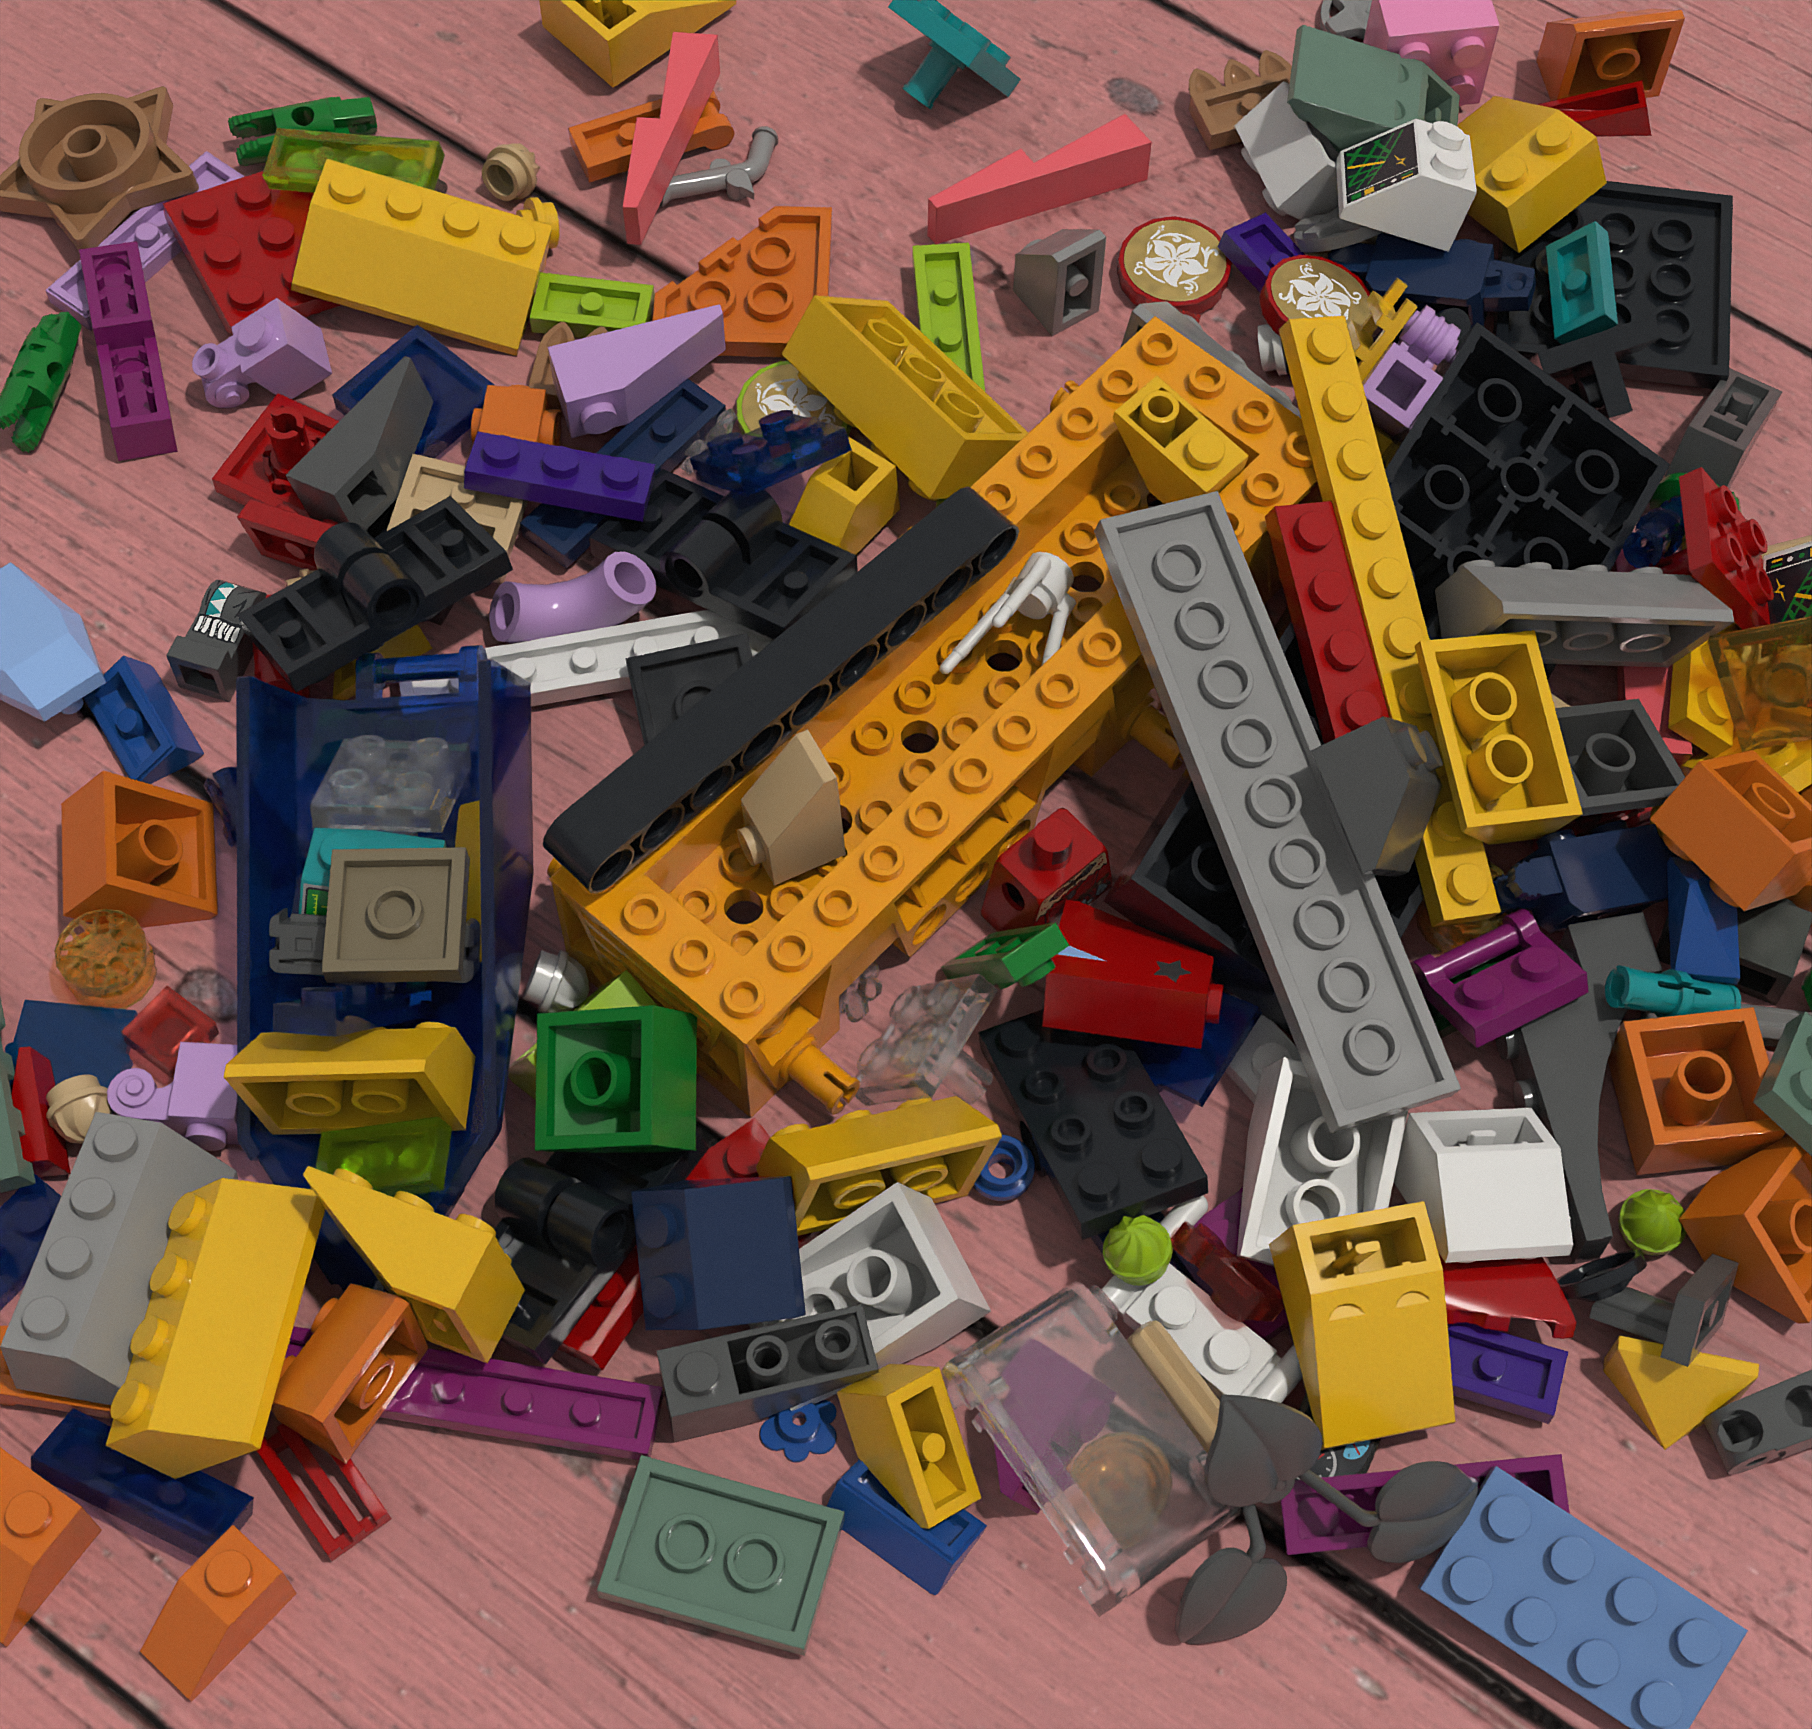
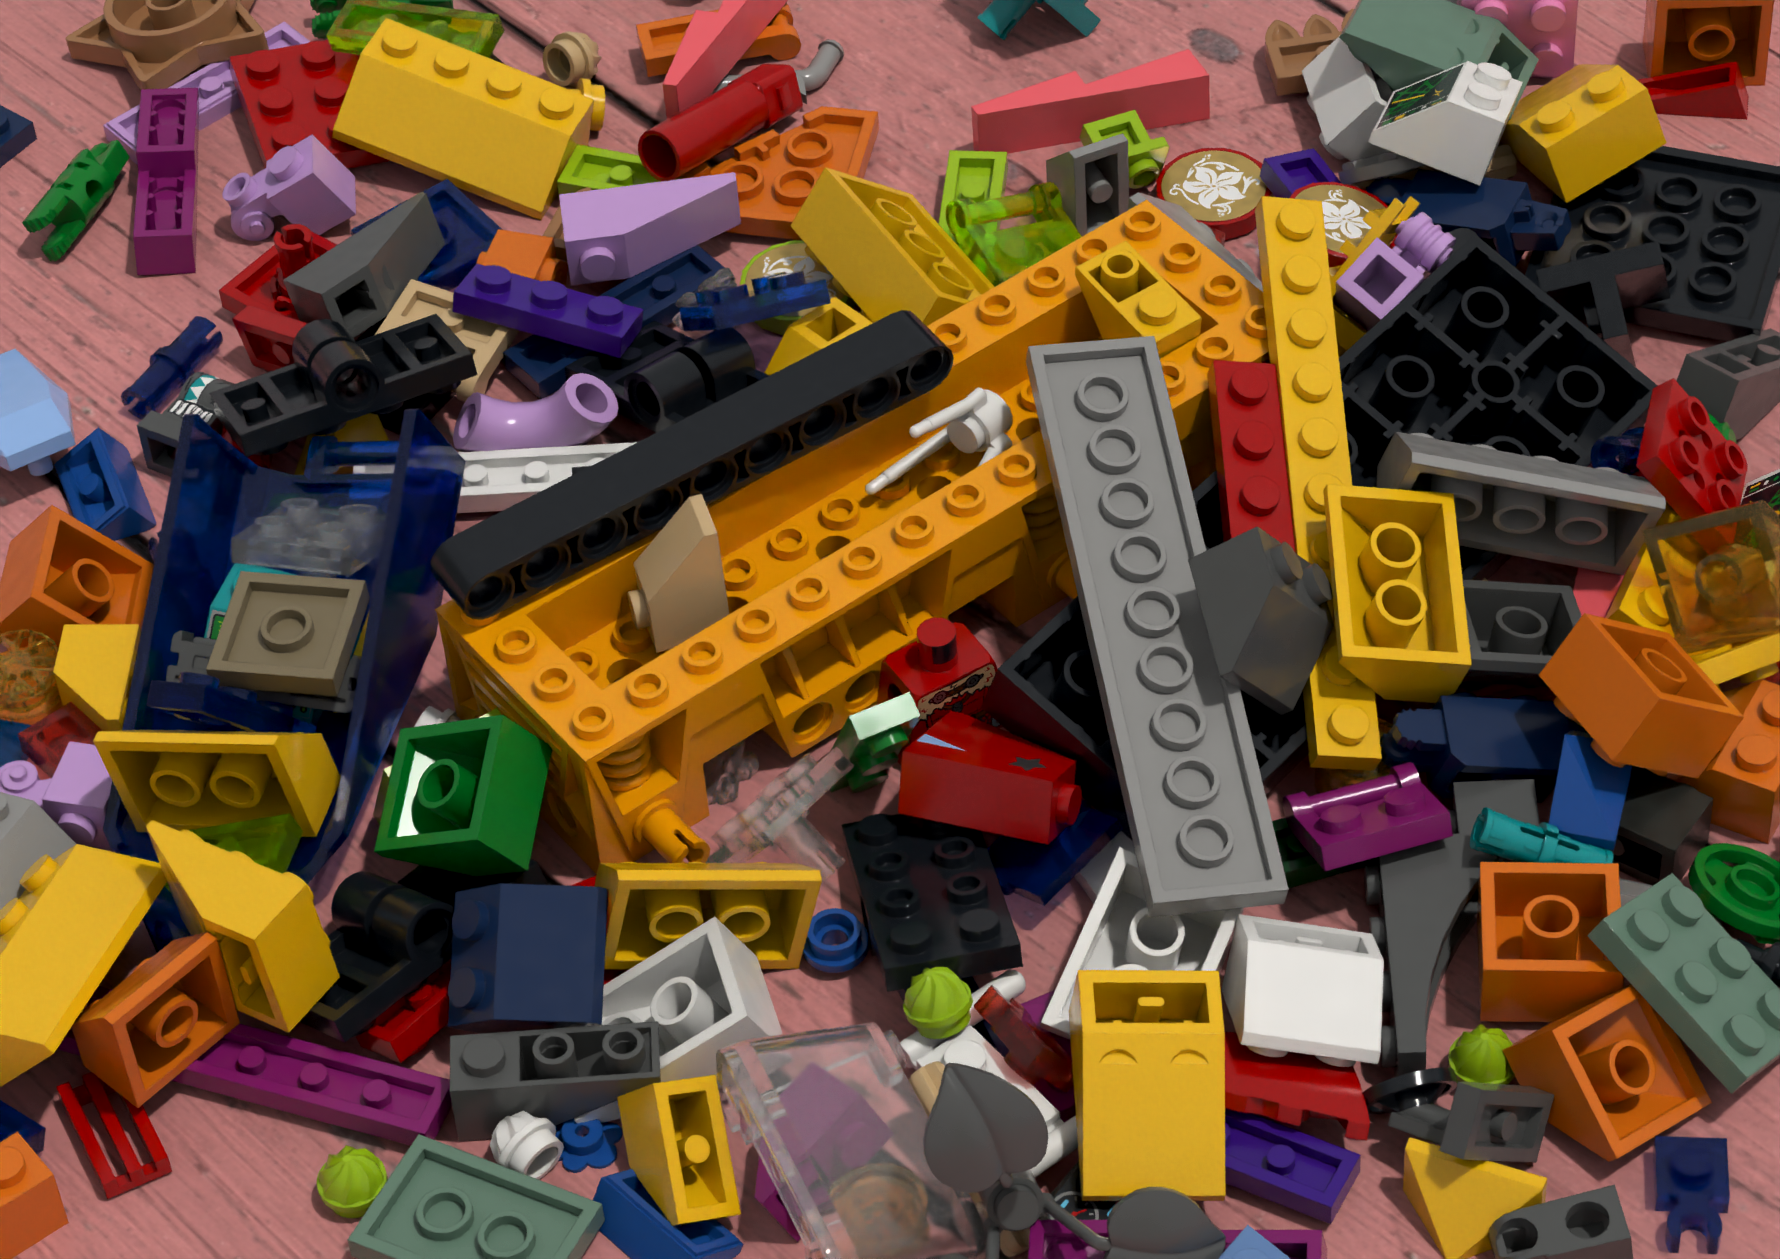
camera: 15 degrees right, 15 degrees down
(181, 571) = (172, 367): none -> clear blue pin
(194, 952) = (97, 670): none -> yellow slope
(582, 1513) = (351, 1181): none -> lime plate
(681, 236) = (720, 121): none -> red piece
(748, 1449) = (526, 1144): none -> white plate
(1014, 357) = (1013, 249): none -> clear neon green plate
(1081, 211) = (1145, 155): none -> lime bracket
(1581, 284) = (1620, 216): teal plate -> none

